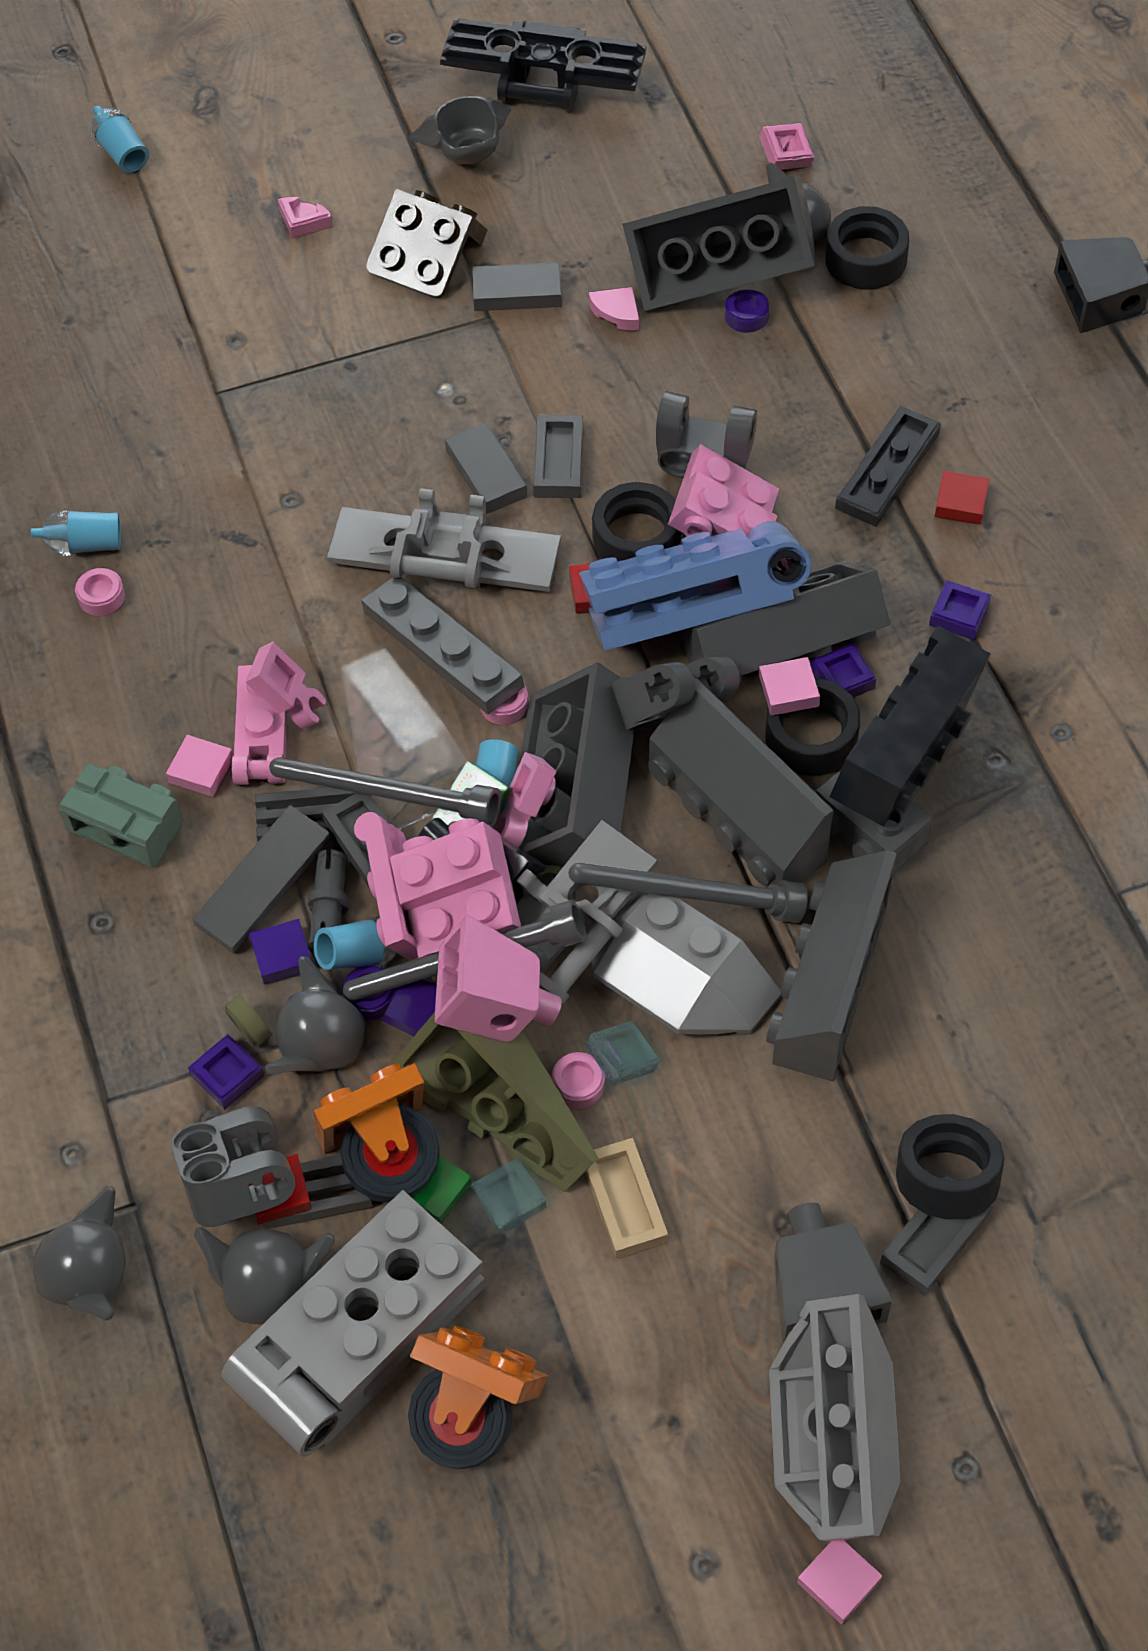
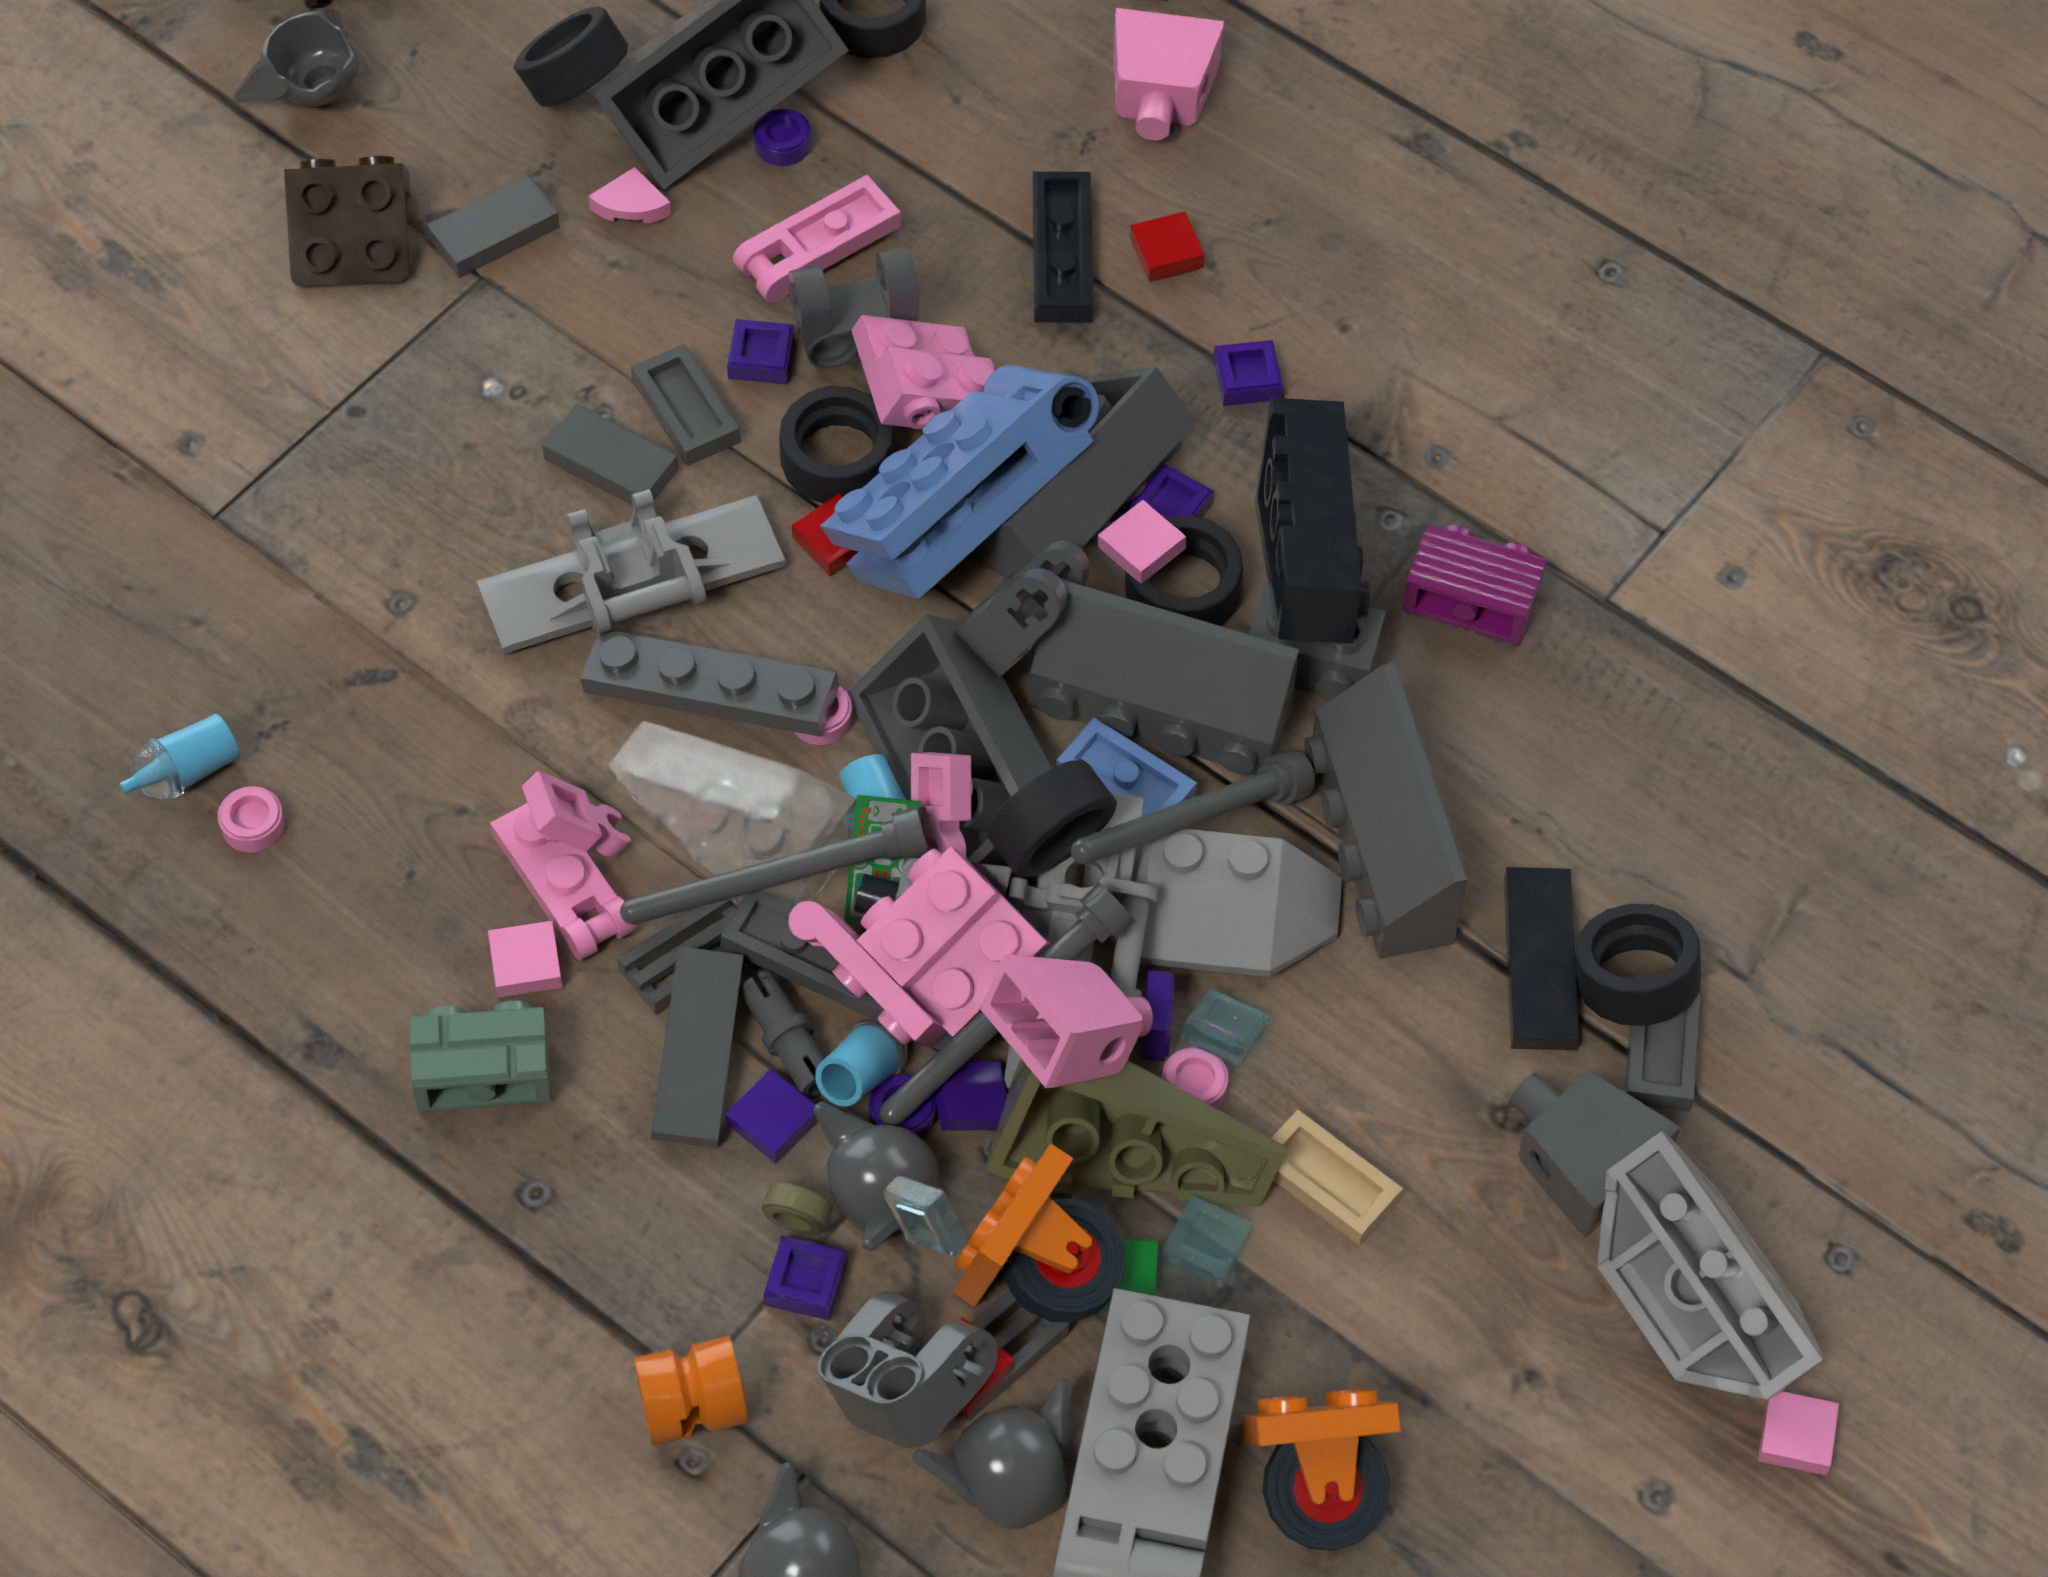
camera: 35 degrees left, 0 degrees up
(98, 1106) = (691, 1390): none -> orange wheel
(303, 217) = (166, 255): bright pink tile -> none
(314, 1067) = (925, 1215): none -> clear light blue tile
(569, 834) = (1049, 815): none -> black tyre
(579, 1019) = (1160, 997): none -> dark purple tile
(631, 444) = (761, 351): none -> dark purple tile
(633, 196) = (571, 56): none -> black tyre
(674, 838) = (1129, 768): none -> medium blue plate
(725, 383) = (817, 236): none -> bright pink plate
(874, 1139) = (1541, 959): none -> black tile
(1020, 831) = (1474, 583): none -> magenta brick
(1041, 375) = (1163, 68): none -> bright pink torso

